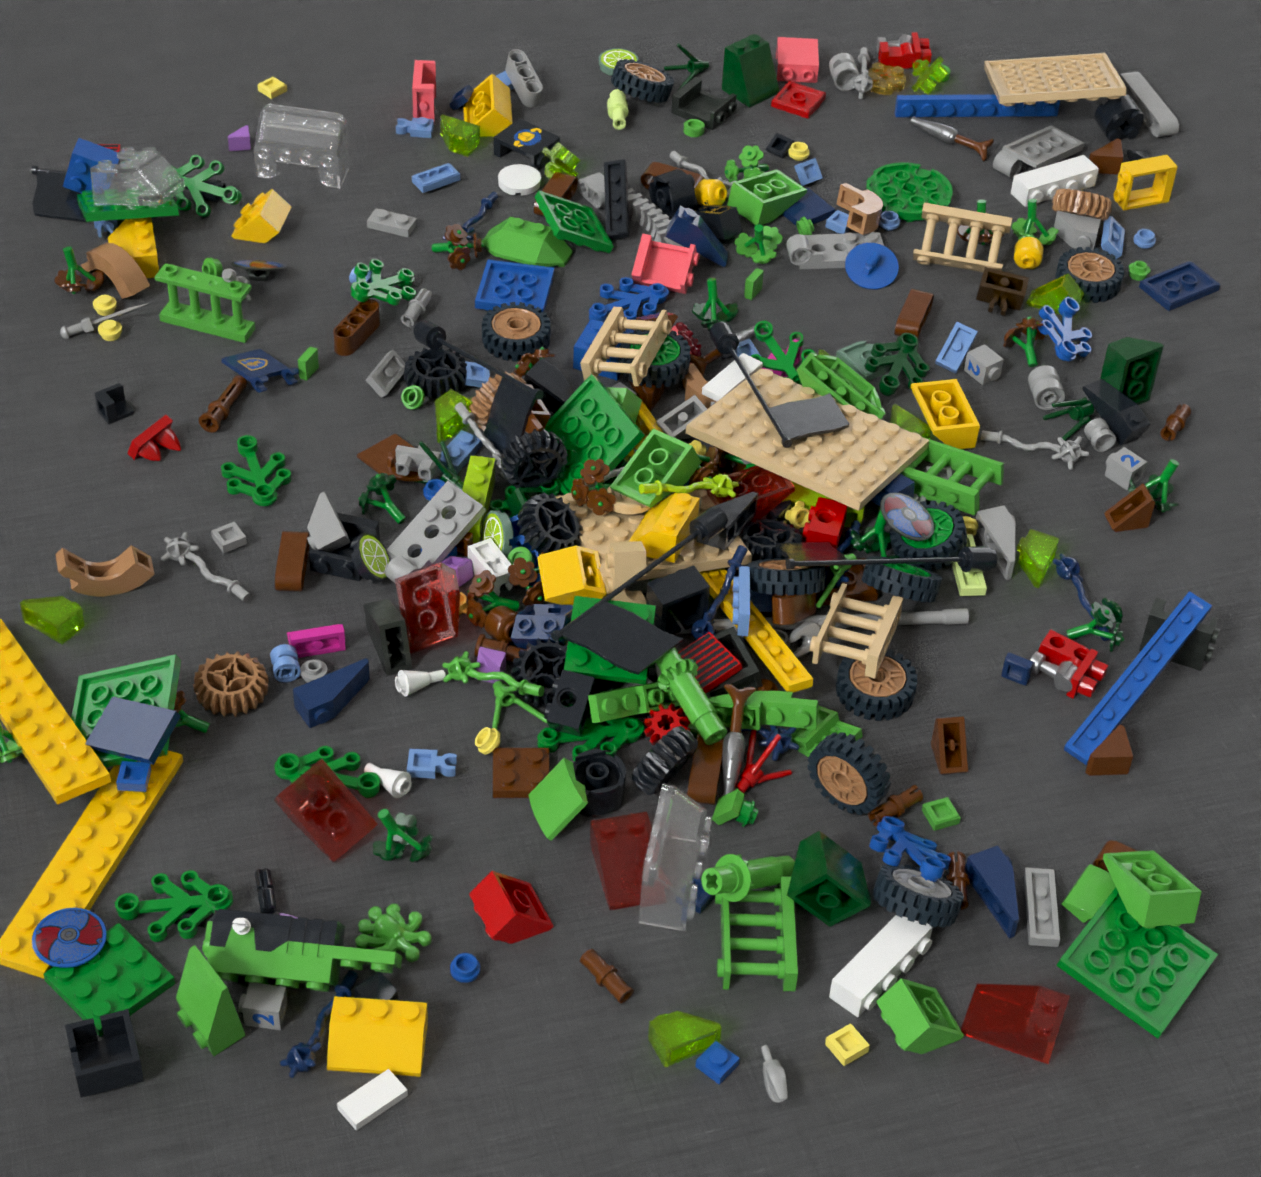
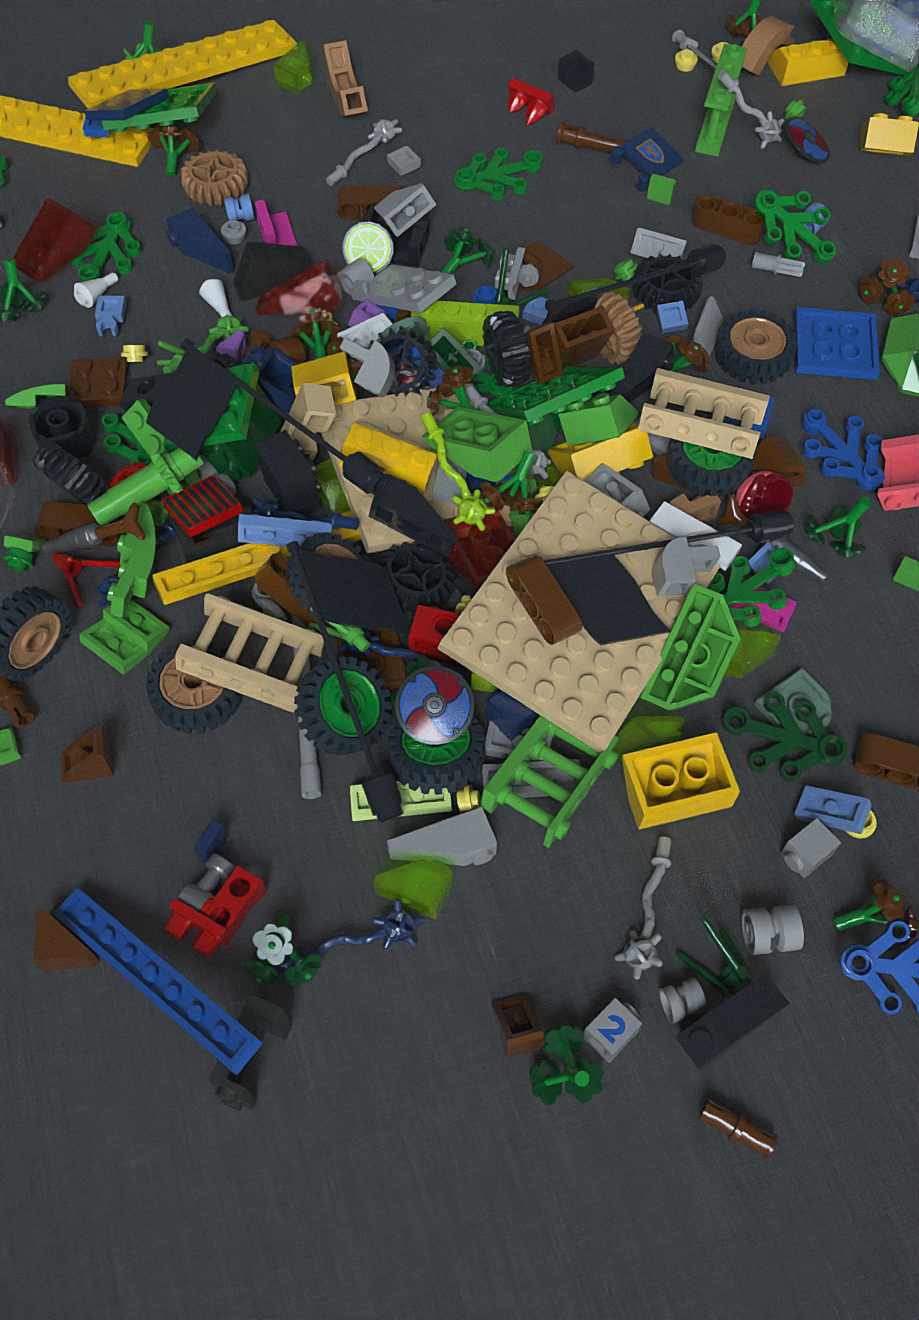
camera: 90 degrees right, 15 degrees up
(495, 358) = (708, 325): none -> light grey slope
(567, 530) = (377, 368): none -> light grey brick
(779, 378) = (678, 564): none -> light grey brick
(821, 440) = (543, 599): none -> reddish brown beam
(1132, 367) = (799, 1039): dark green slope -> none

